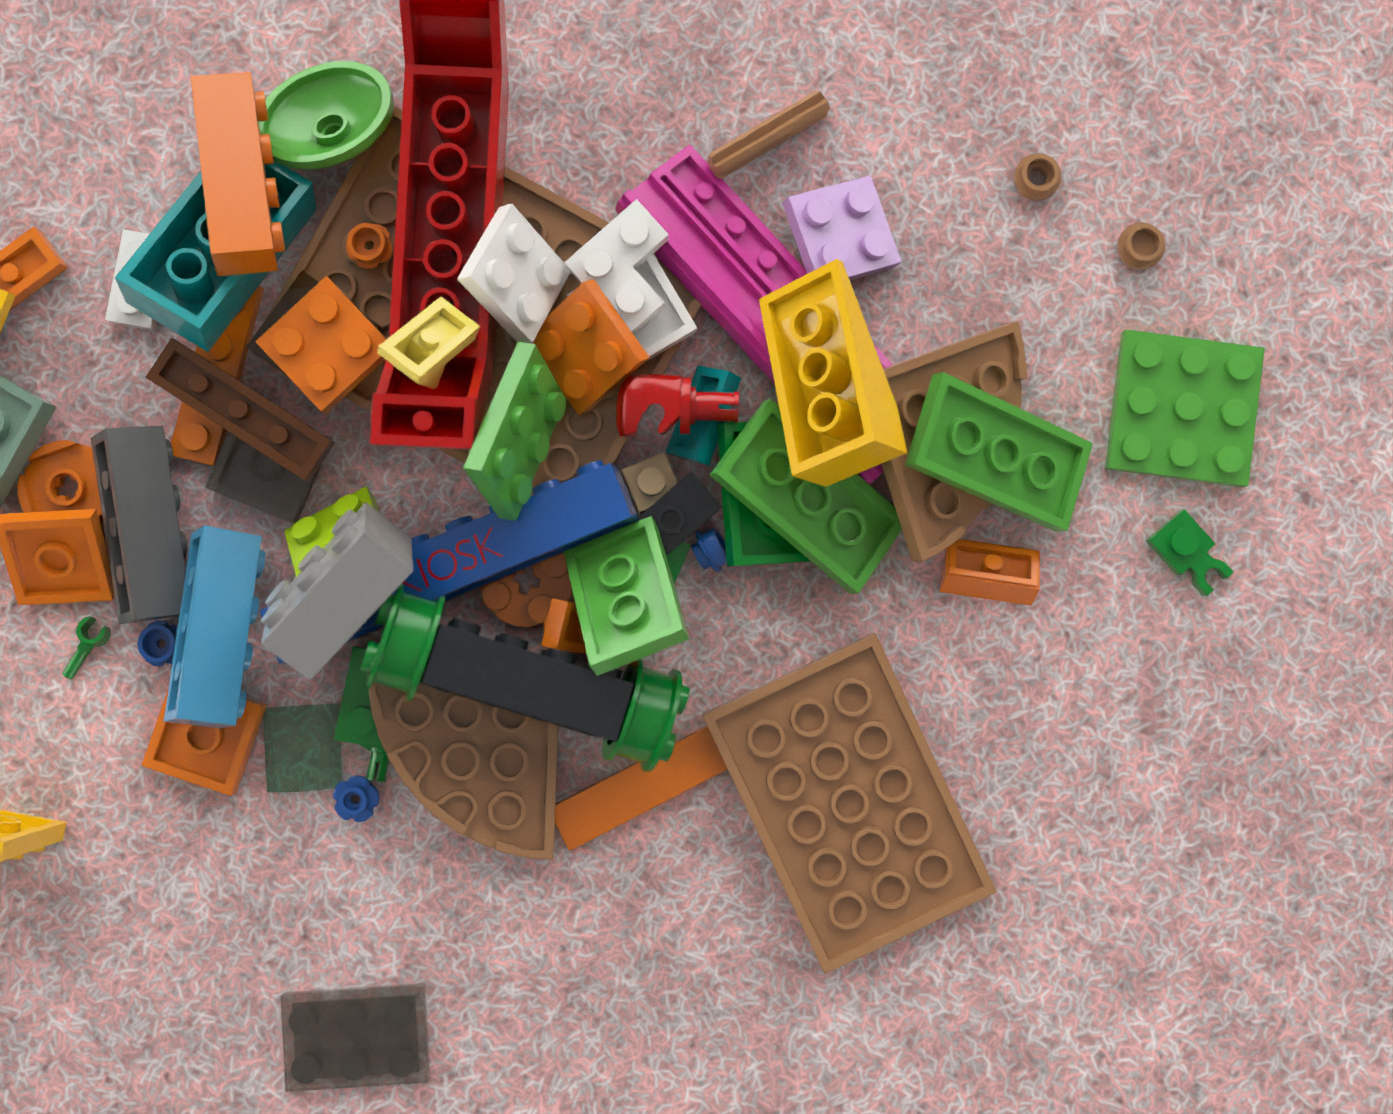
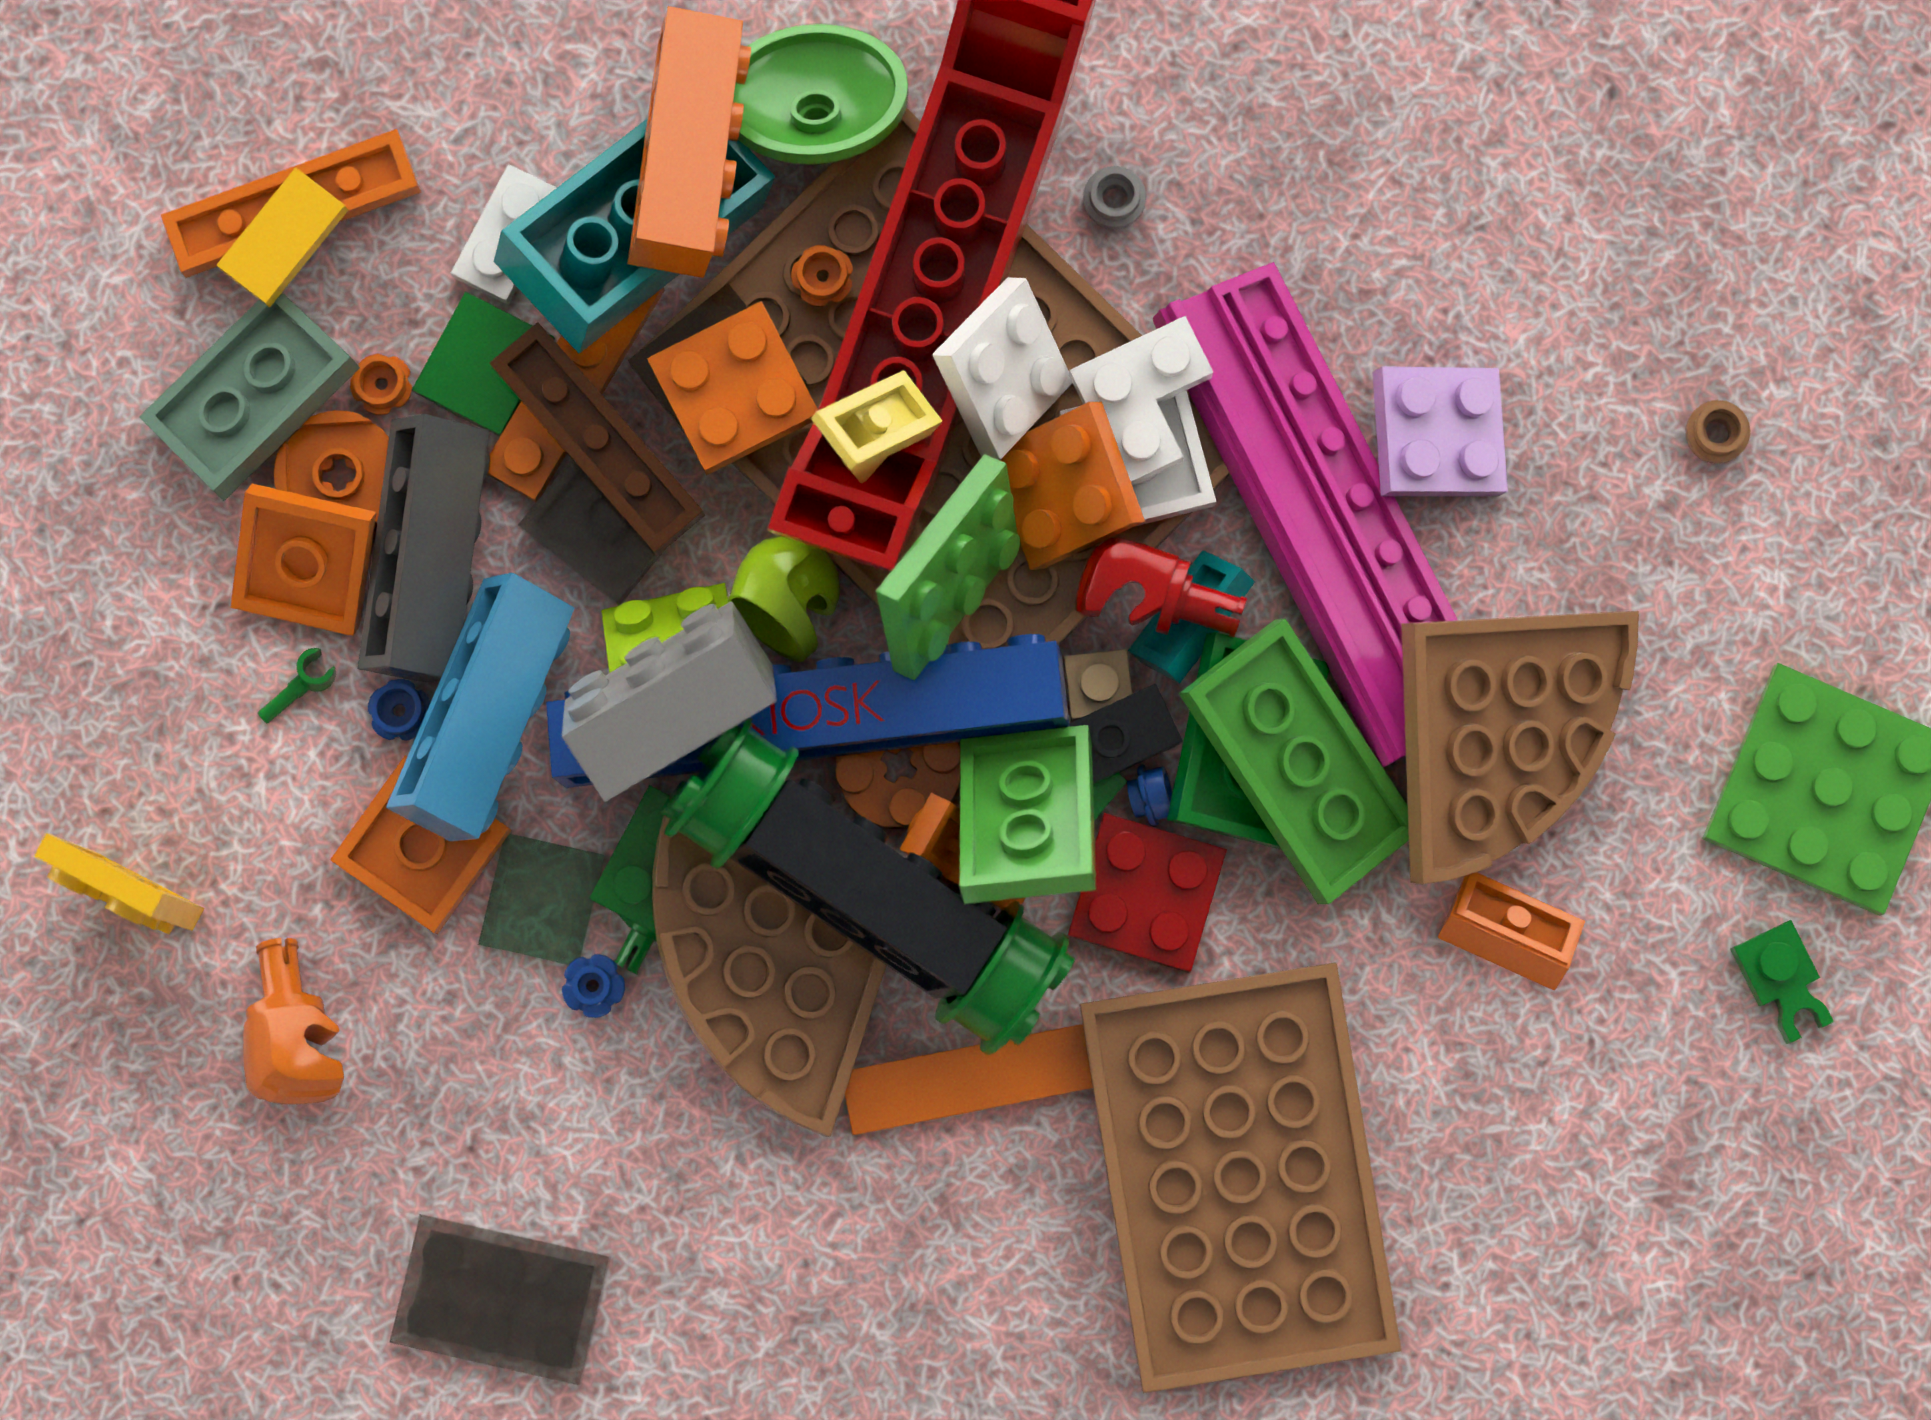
camera: 15 degrees right, 5 degrees down
(67, 413) = (381, 367): none -> orange plate
(129, 391) = (460, 370): none -> green piece
(143, 922) = (275, 1052): none -> orange piece
(400, 479) = (776, 589): none -> lime helmet
(562, 116) = (1114, 178): none -> light grey plate
(728, 619) = (1148, 893): none -> red plate
(768, 134) = (1379, 278): medium nougat axle -> none
(829, 379) = (1366, 614): yellow slope -> none
(998, 452) = (1564, 774): bright green plate -> none
(1140, 246) = (1829, 560): medium nougat plate -> none

